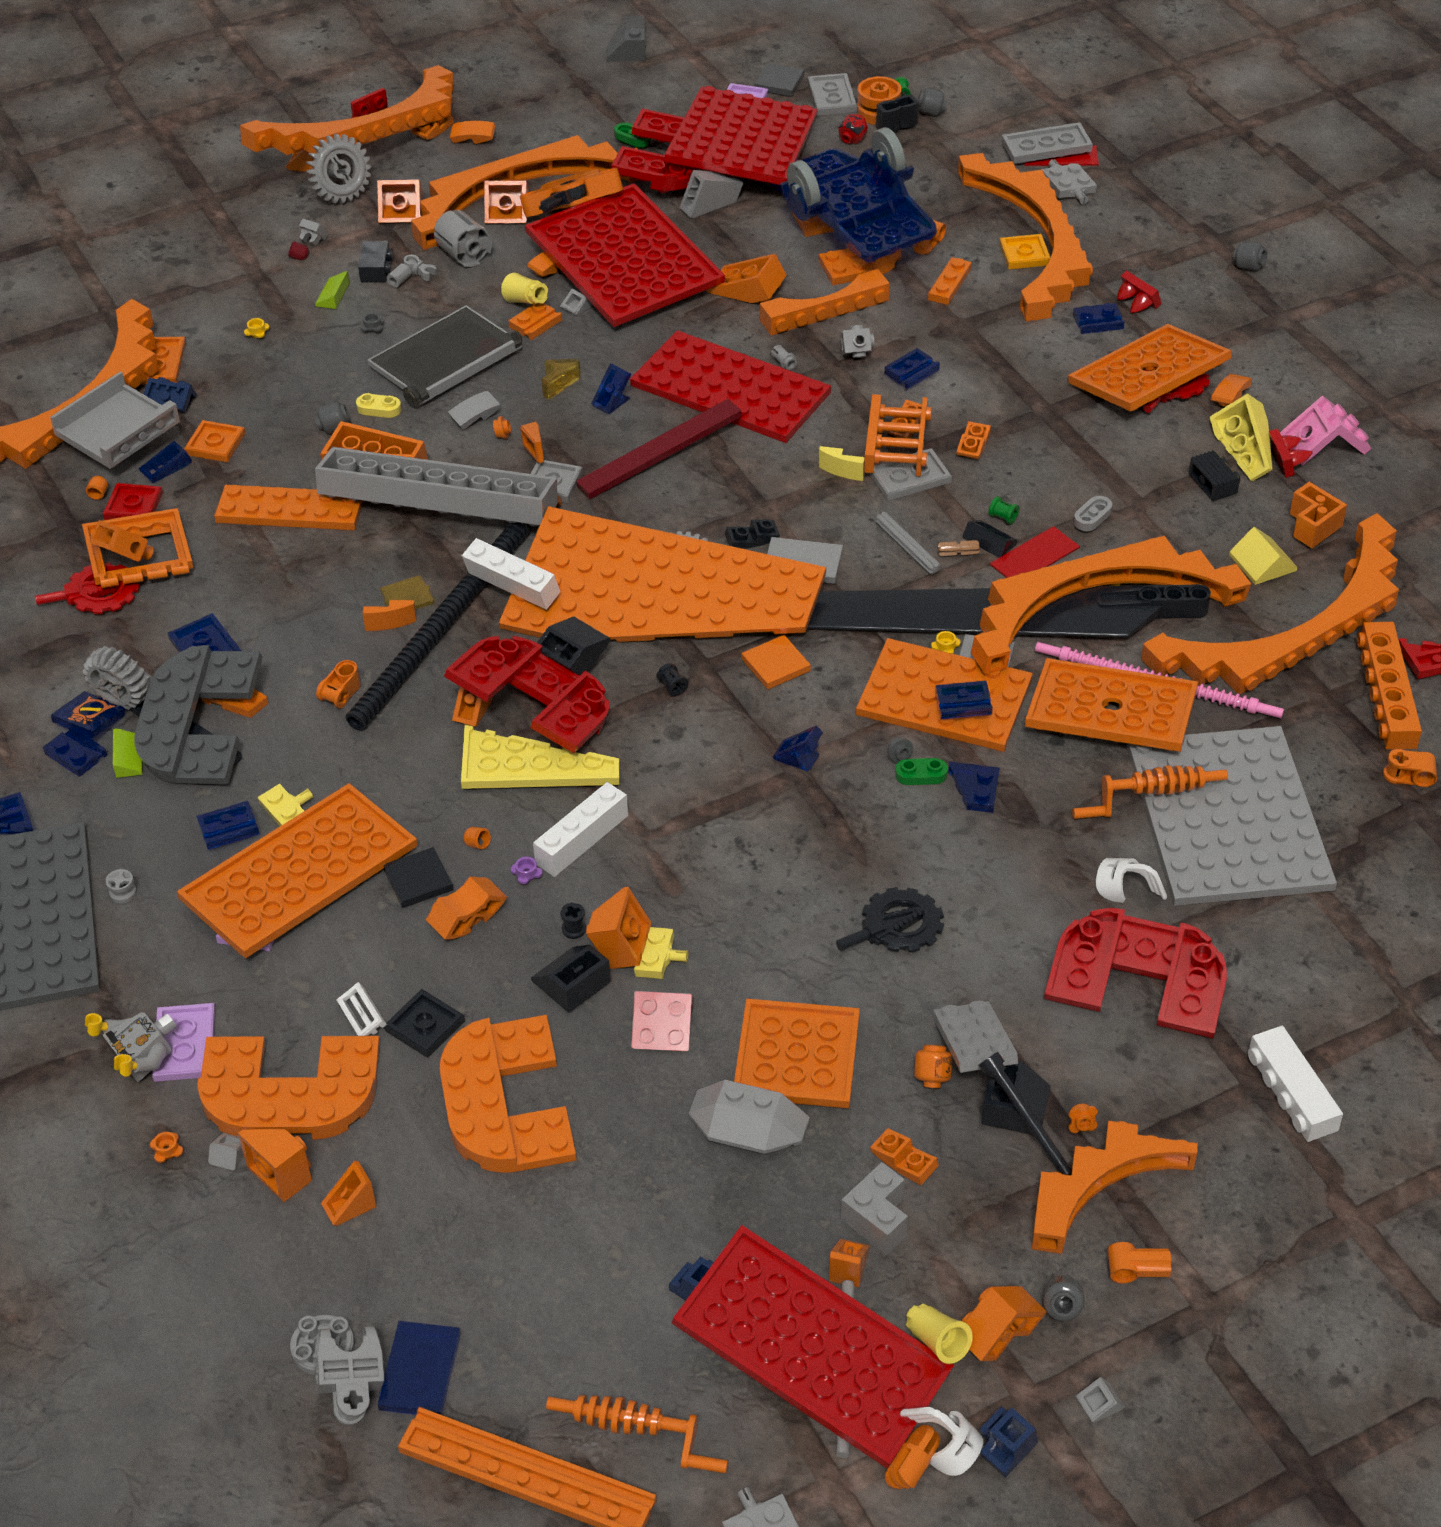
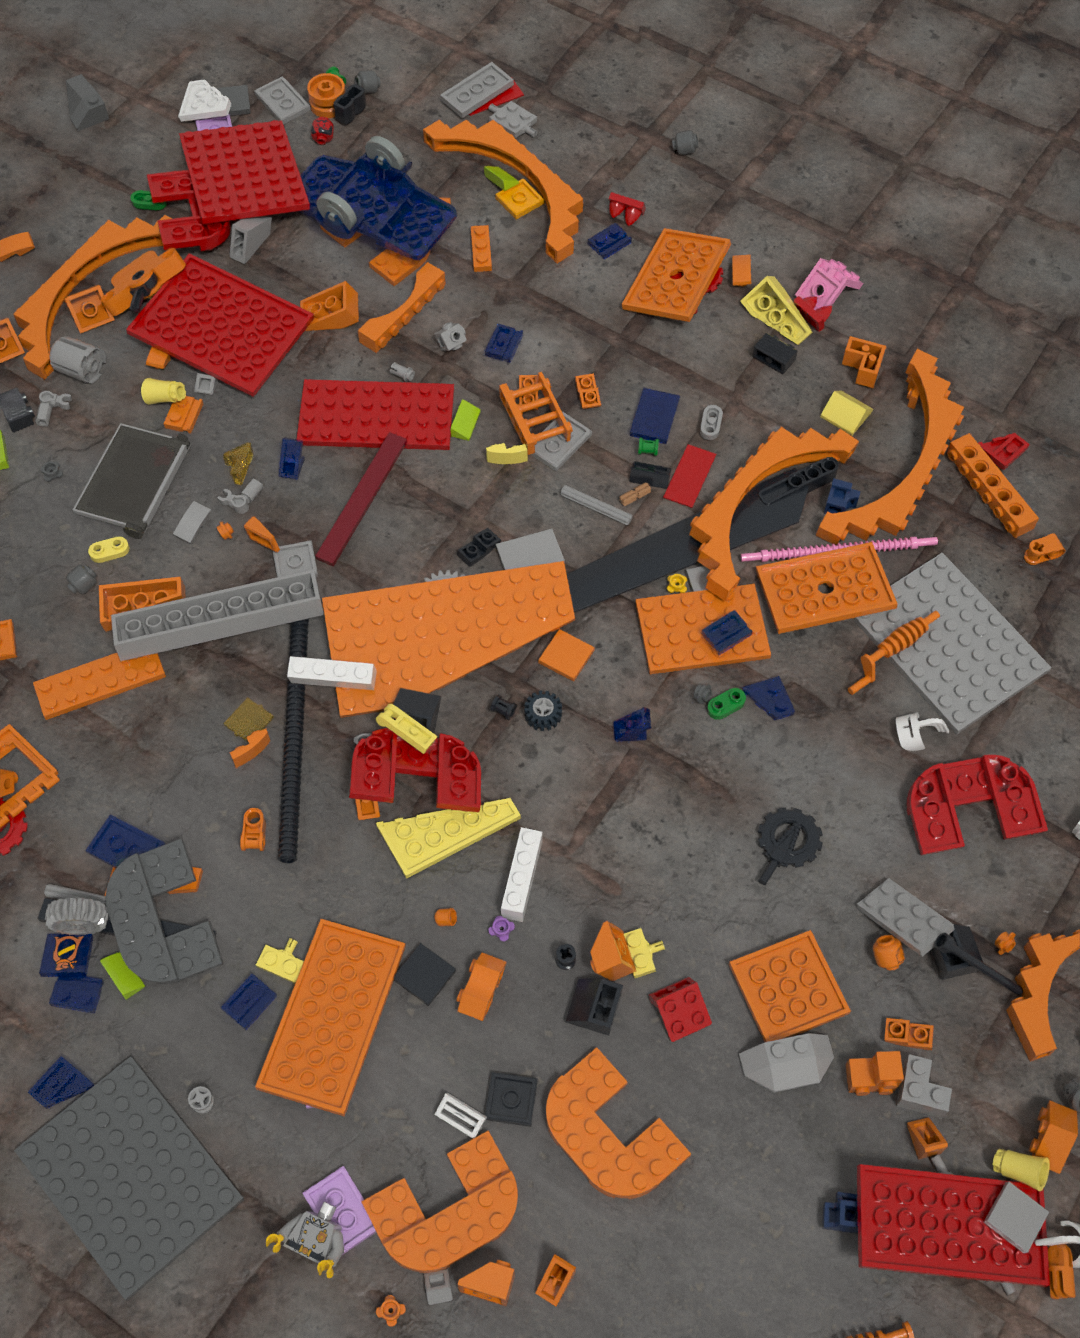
camera: 30 degrees left, 15 degrees up
(535, 411) = (240, 502): none -> light grey bar
(550, 647) = (406, 728): none -> light yellow plate
(712, 699) = (543, 703): none -> black wheel
(745, 69) = (203, 102): none -> white plate
(819, 420) = (465, 421): none -> lime slope
(832, 1169) = (875, 1074): none -> orange brick
(894, 1372) = (1016, 1217): none -> light grey tile
(1015, 224) = (500, 177): none -> lime slope
(1034, 486) = (655, 415): none -> clear blue tile
(1193, 626) = (841, 497): none -> dark blue brick

